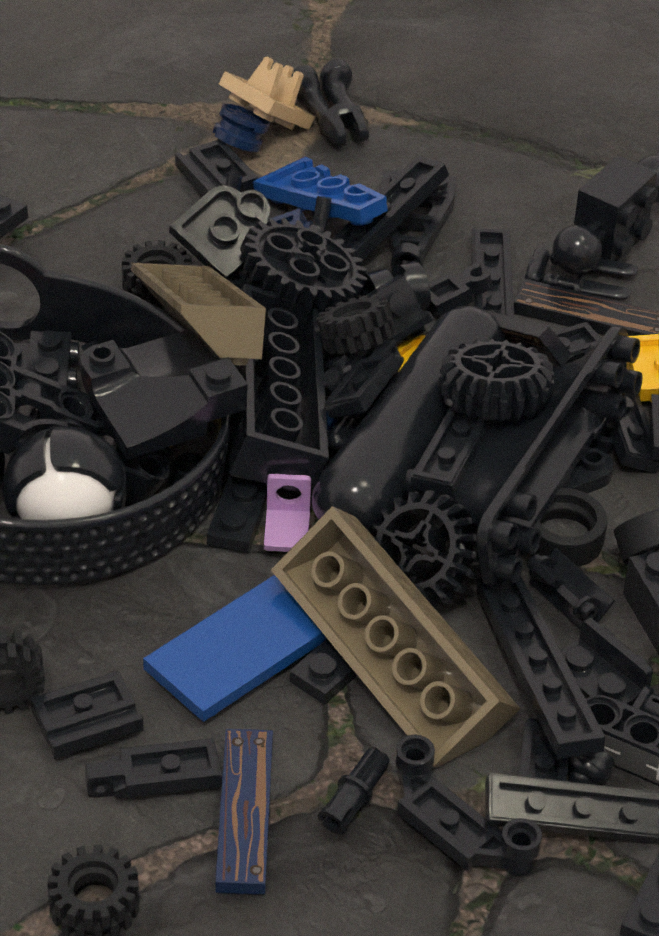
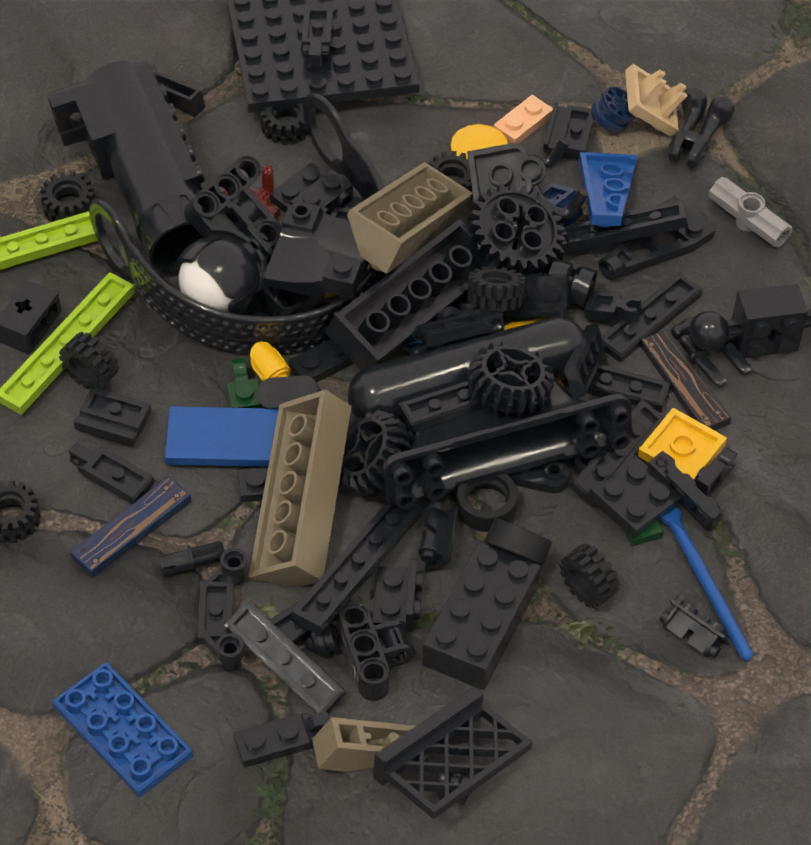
camera: 45 degrees right, 10 degrees up
(137, 228) = (476, 137): none -> yellow dish
(156, 190) = (524, 119): none -> light nougat plate
(191, 597) = (242, 392): none -> dark green plate
(209, 553) = (268, 362): none -> yellow arm
(255, 556) = (284, 389): none -> black tile
(286, 519) = (339, 380): lavender bracket -> none
(468, 143) = (750, 212): none -> light grey piece

